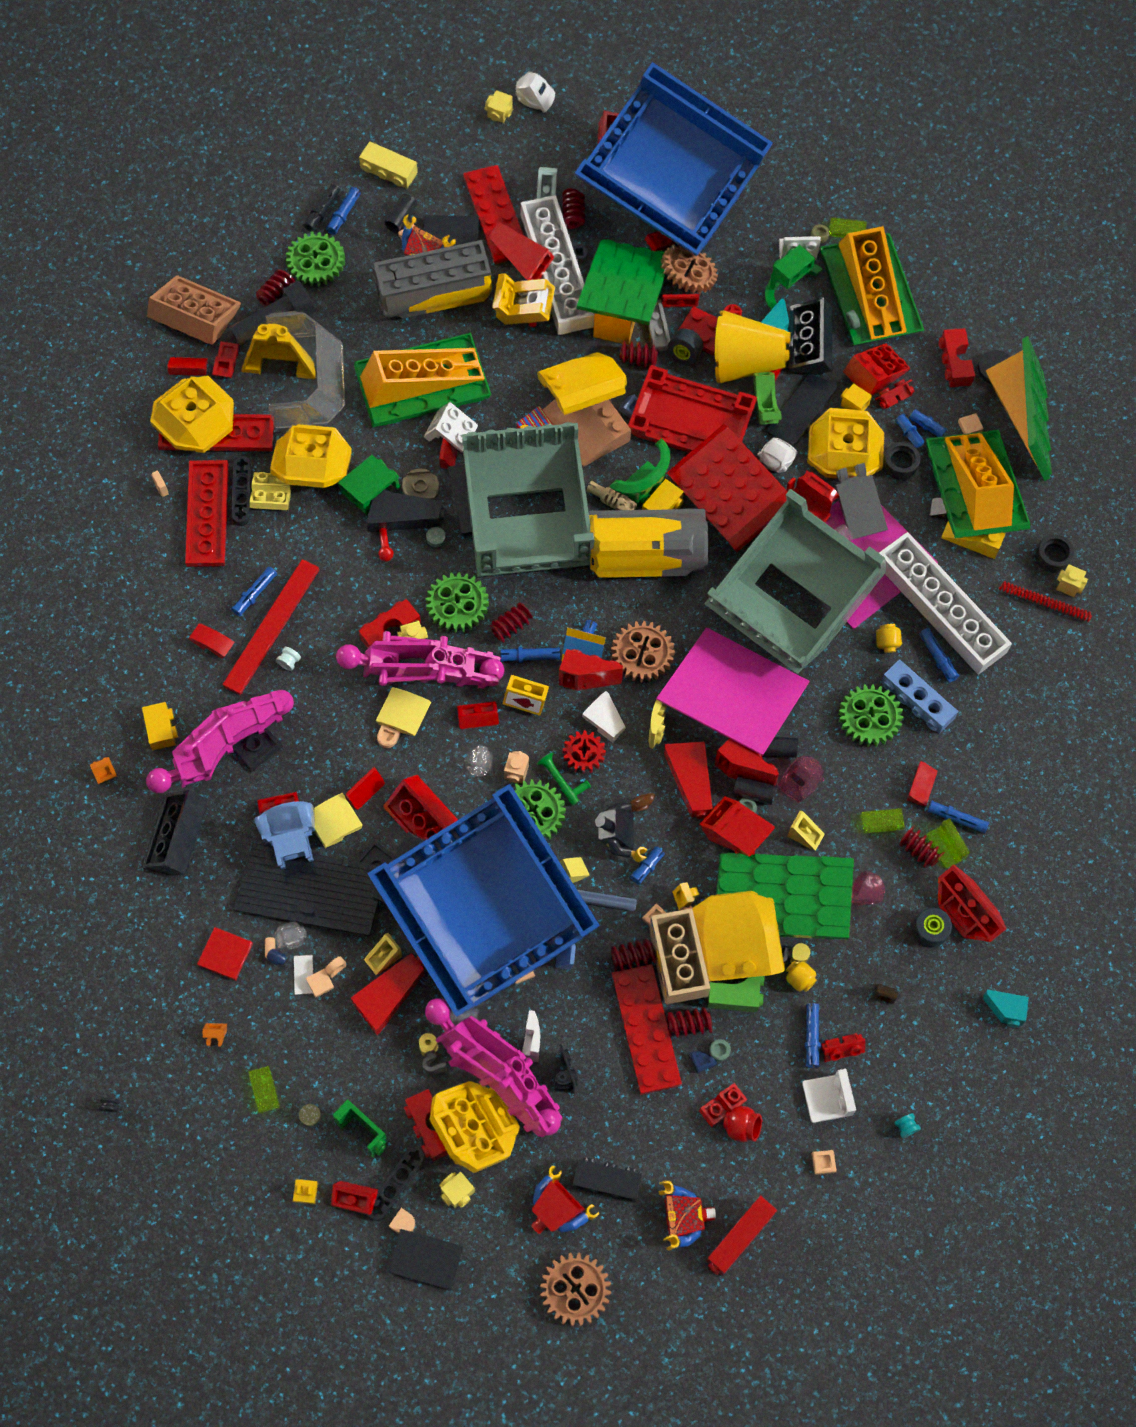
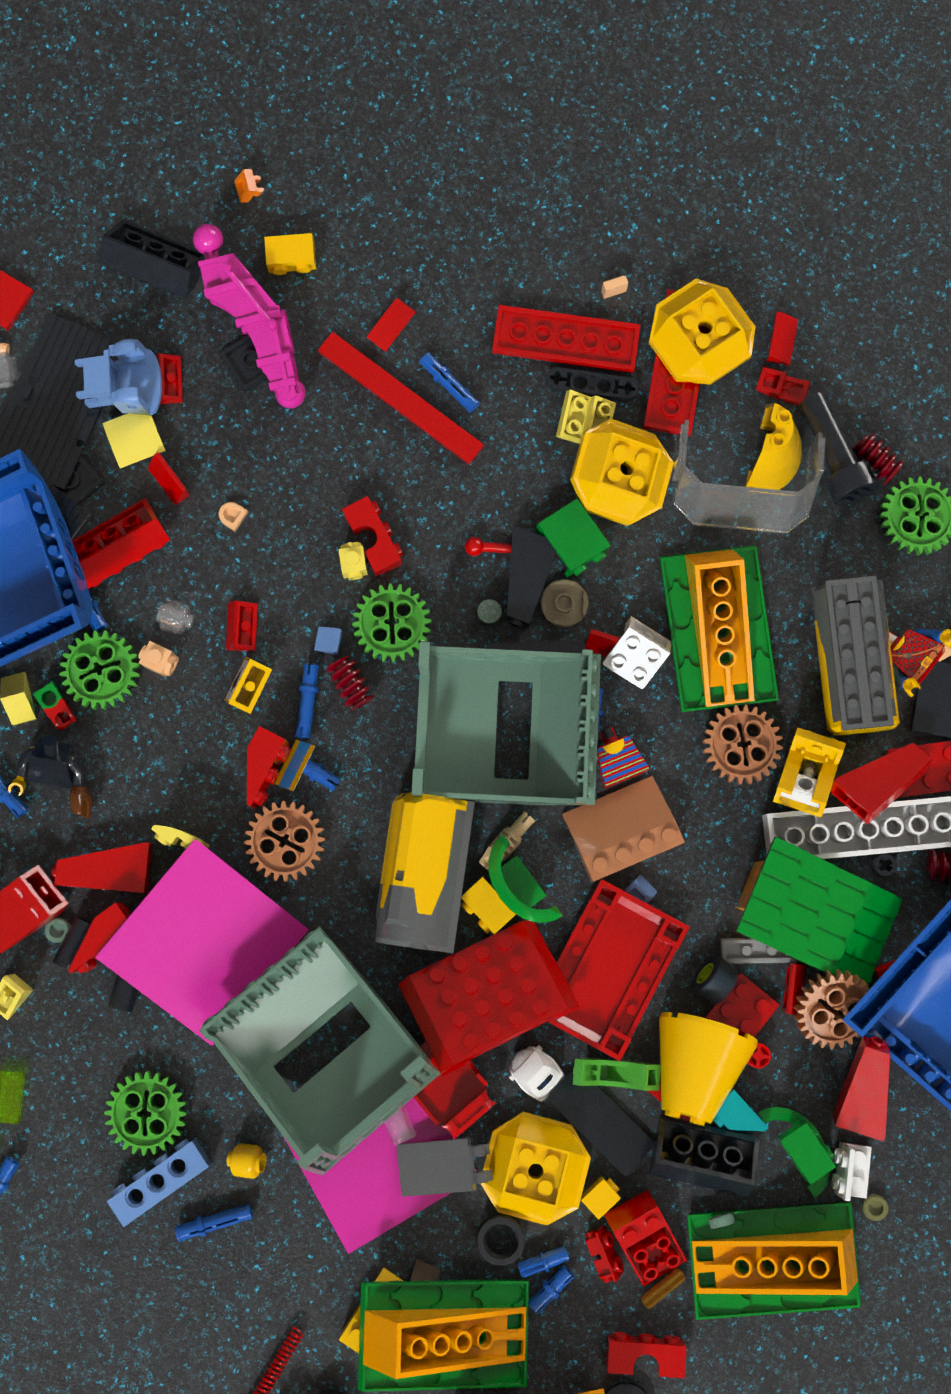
camera: 100 degrees right, 15 degrees up
(192, 309) = (863, 353): nougat slope -> none
(288, 658) = (351, 410): light aqua wheel -> none
(397, 648) = (292, 649): dark pink piece -> none
(403, 711) = (257, 537): light yellow slope -> none
(478, 642) = (328, 640): none -> medium blue slope
(508, 351) = (764, 741): none -> nougat gear
(567, 840) = (55, 706): none -> leg
(571, 794) = (116, 719): green piece -> none
(575, 751) = (165, 735): red gear -> none
(584, 381) = (674, 833): yellow wedge -> none
(605, 717) = (207, 779): white slope -> none
(638, 353) = (712, 915): dark red piece -> none
(741, 241) = (865, 1091): none -> slope
(801, 778) = (81, 1007): clear pink helmet -> none
(841, 227) = (877, 1249): clear neon green tile -> none
(908, 354) = (663, 1288): none -> pearl gold axle
(922, 784) = (45, 1158): red slope -> none
(944, 604) = (278, 1244): white brick -> none
(970, 424) = (542, 1349): light nougat tile -> none

